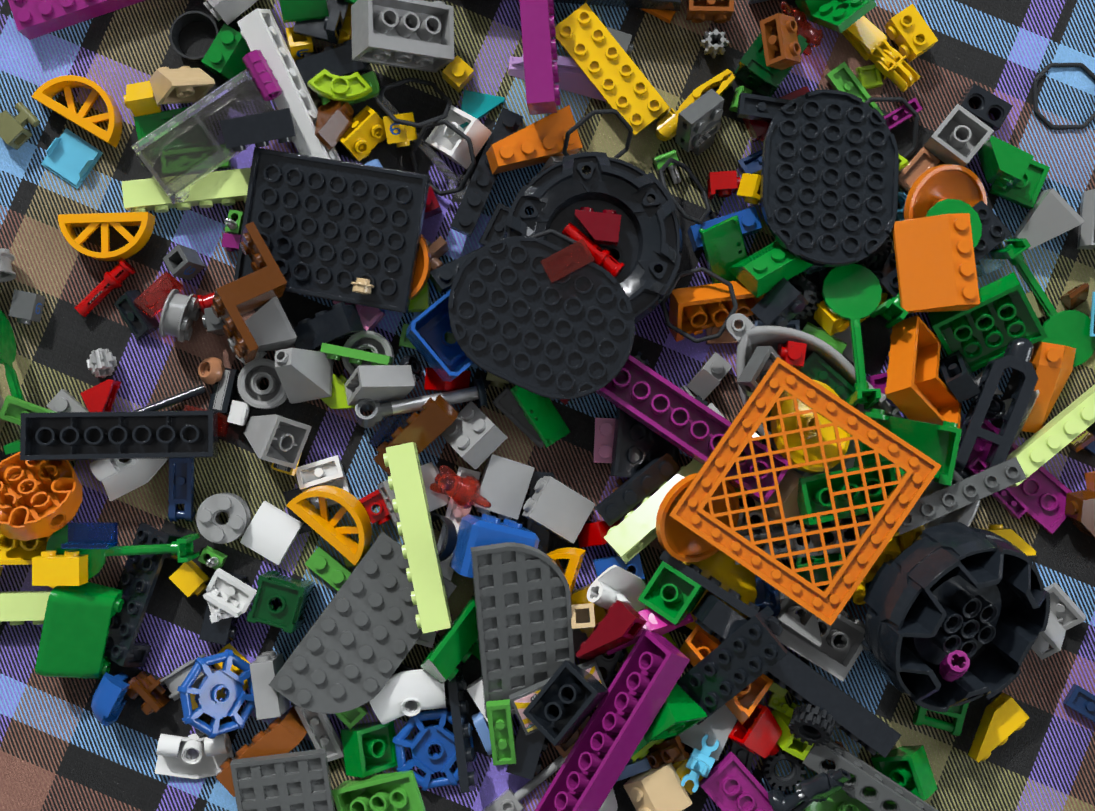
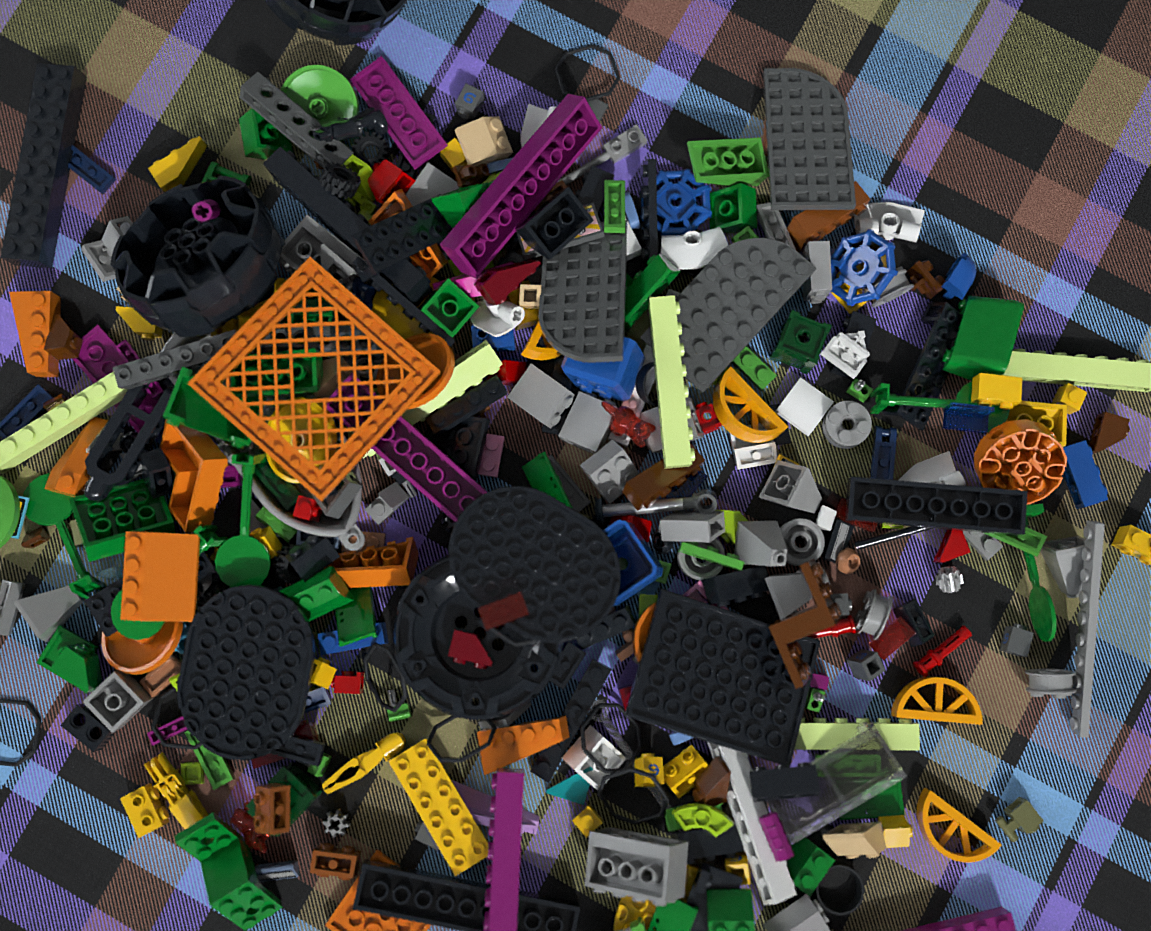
camera: 170 degrees left, 5 degrees down
(71, 158) = (967, 782): medium azure piece -> none
(190, 579) = (880, 372): yellow brick -> none
(362, 286) = (699, 617): tan plate -> none
(601, 256) = (472, 619): red pin -> none
(700, 123) = (361, 742): dark grey piece -> none
(700, 763) = (443, 162): medium azure pin -> none
(713, 275) = (379, 534): black piece -> none

